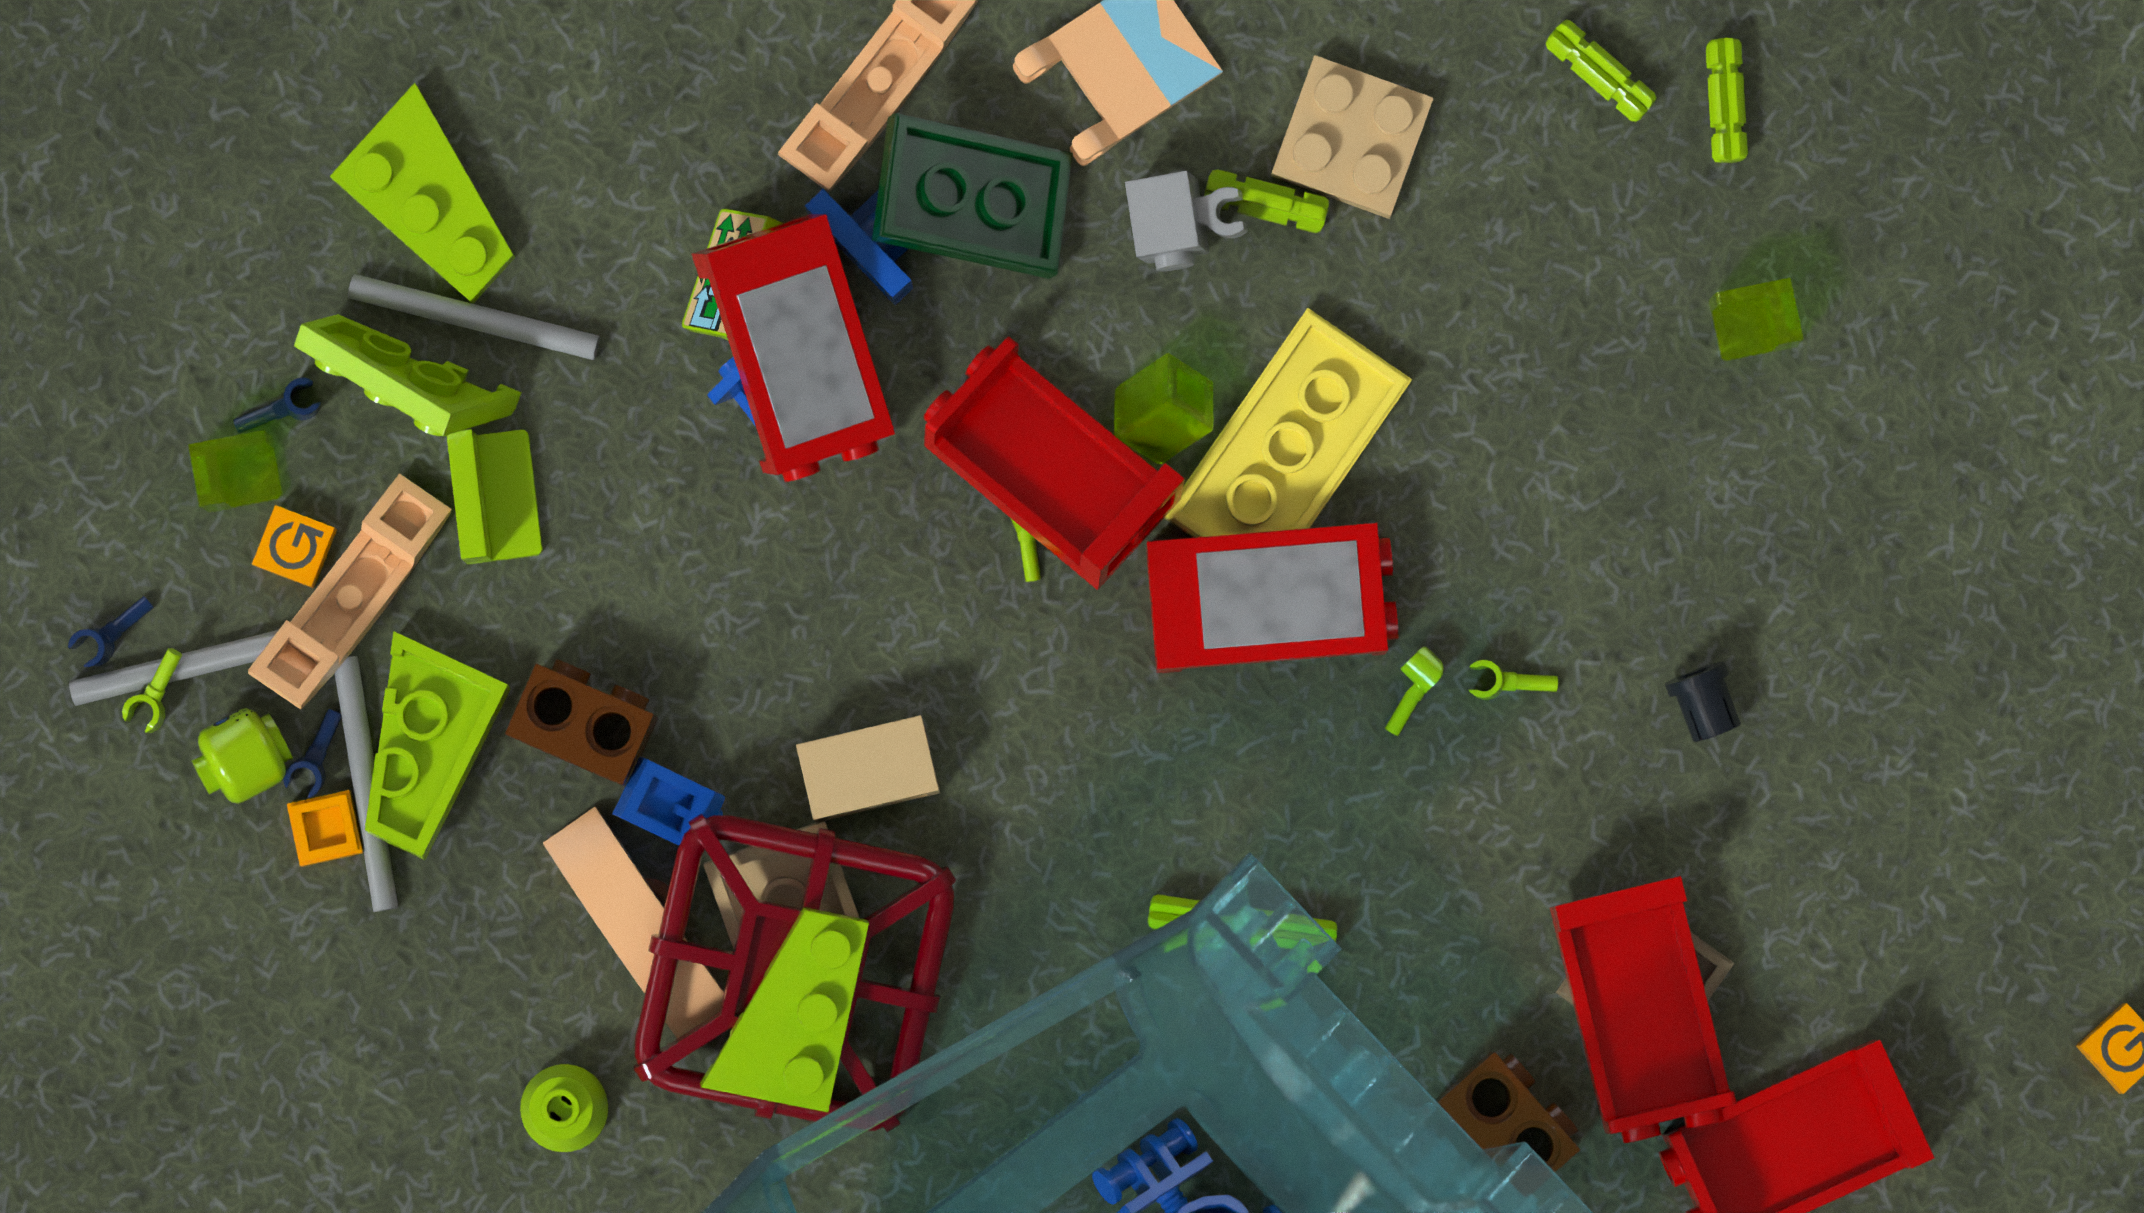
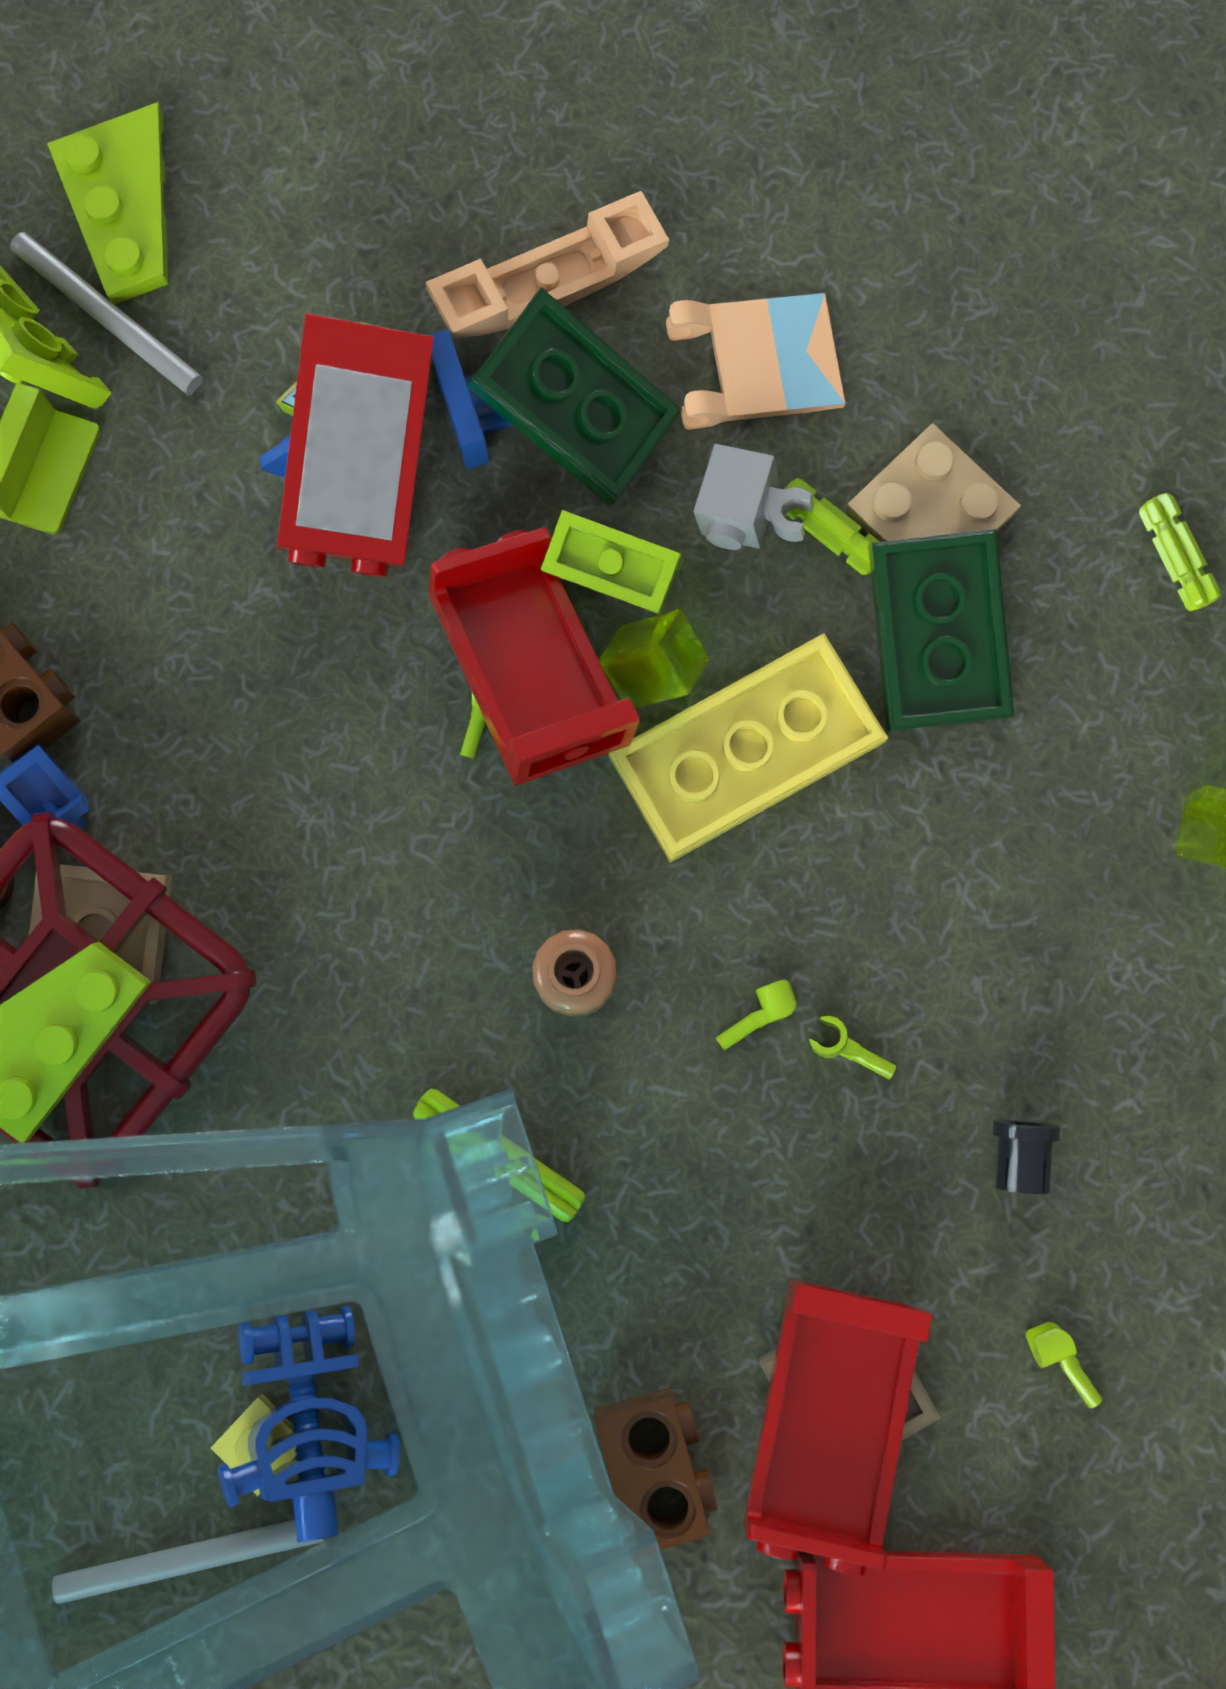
camera: 25 degrees right, 5 degrees down
(868, 768) = (231, 848): tan panel -> none
(1083, 337) = (611, 562): none -> lime panel
(1243, 710) = (570, 949): none -> nougat head
(1270, 596) = (668, 866): panel -> none
(1414, 255) = (941, 629): none -> dark green tile
(1804, 853) = (1054, 1345): none -> lime hand

